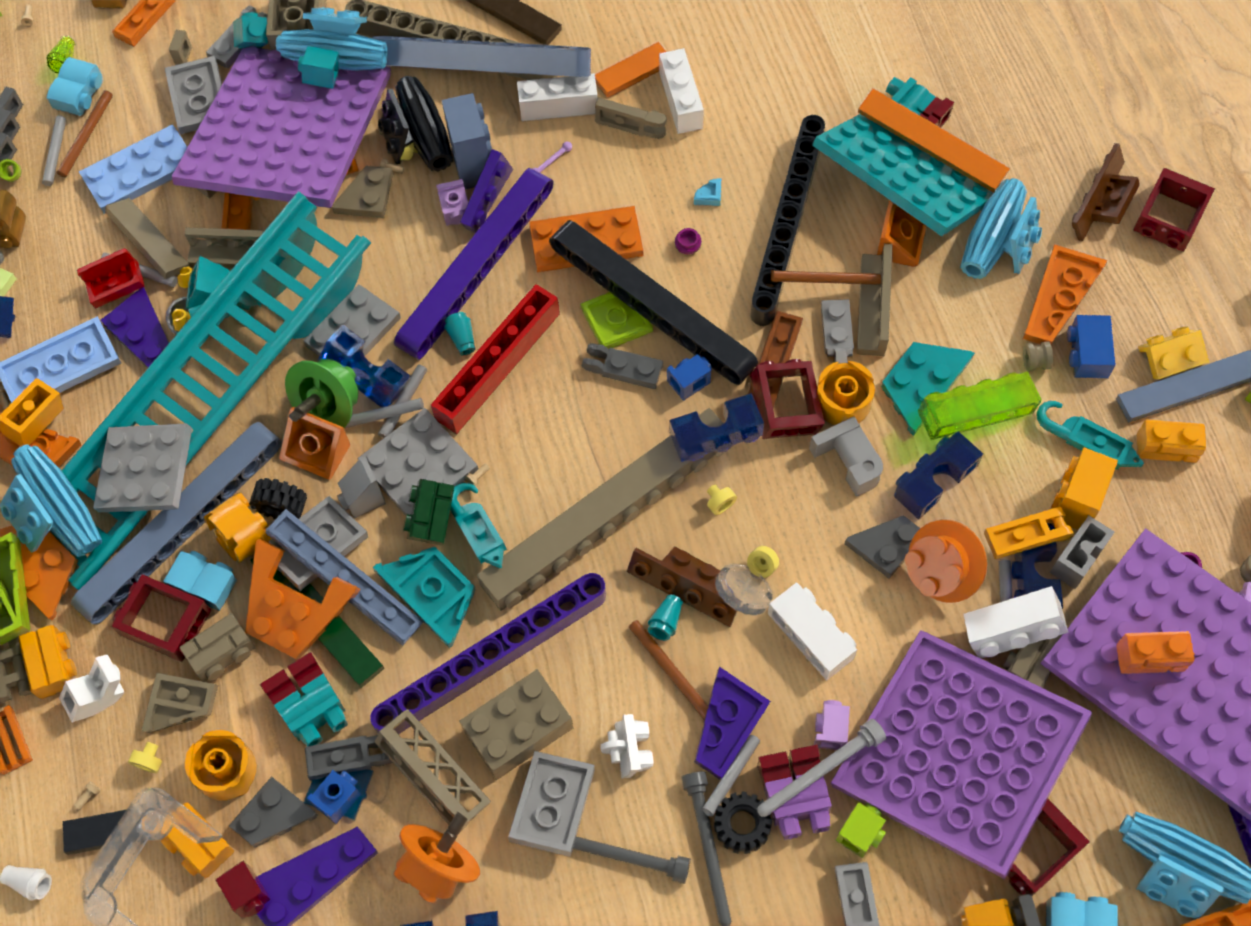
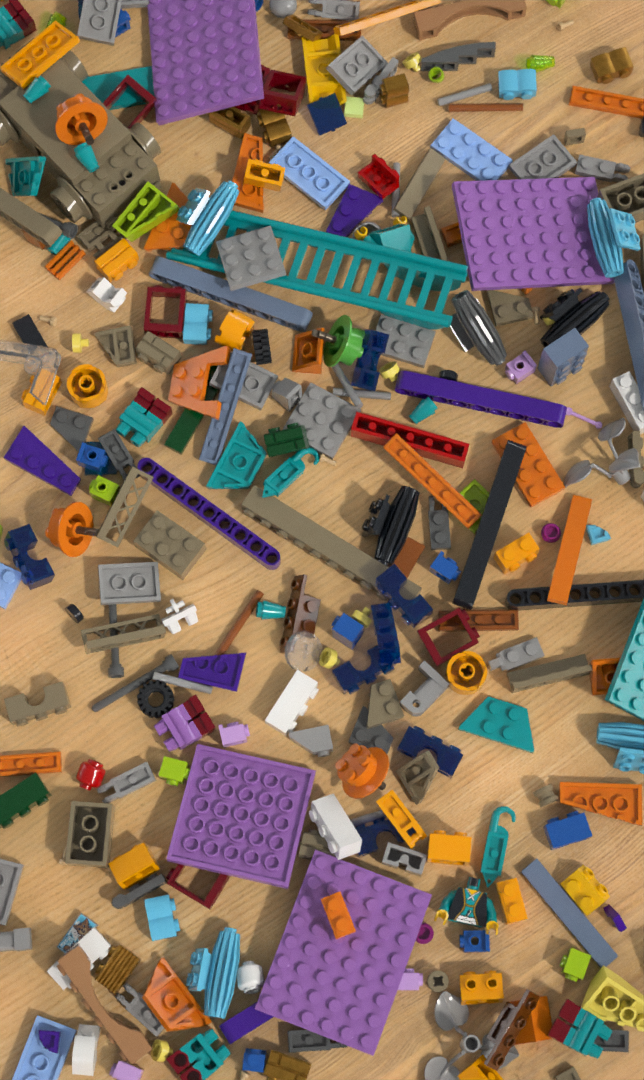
camera: 70 degrees right, 10 degrees up
(243, 890) = (20, 429): dark red brick -> none
(250, 31) = (602, 176): teal brick -> none
(319, 67) = (583, 236): teal brick -> none
(382, 225) = (474, 328): none -> dark grey plate
(387, 350) = (389, 371): none -> light yellow tile
(393, 795) = (104, 490): none -> lime brick
(426, 285) = (449, 375): none -> black tile
(486, 191) = (536, 384): dark purple wing -> none
(565, 346) = (432, 481): none -> orange tile
(566, 903) = (74, 613): none -> black tile
(598, 417) = (391, 523): none -> black plate
(638, 109) = (618, 469): none -> light grey plant
(638, 840) = (123, 638): none -> dark tan fence
(652, 416) = (409, 556): none -> dark orange tile
(702, 285) = (514, 554): none -> light orange brick
(723, 222) = (569, 550): none -> orange tile
(737, 519) = (347, 630): none -> blue brick
(778, 466) = (385, 634): none -> clear blue arch
(791, 496) = (350, 679): none -> clear blue arch
(826, 277) = (550, 633): dark orange bar -> none
(852, 512) = (383, 704): none -> dark tan wing
(869, 735) = (229, 755): light grey piece -> none
(876, 617) = (314, 740): none -> light grey slope
(967, 497) = (418, 775): none -> dark tan wing
(979, 405) = (490, 764): clear neon green brick -> none
(1168, 493) = (469, 907): none -> torso
(1202, 818) = (250, 977): none -> white head
(1214, 502) = (482, 946): none -> blue brick
(1219, 328) = (616, 918): none -> dark purple tile

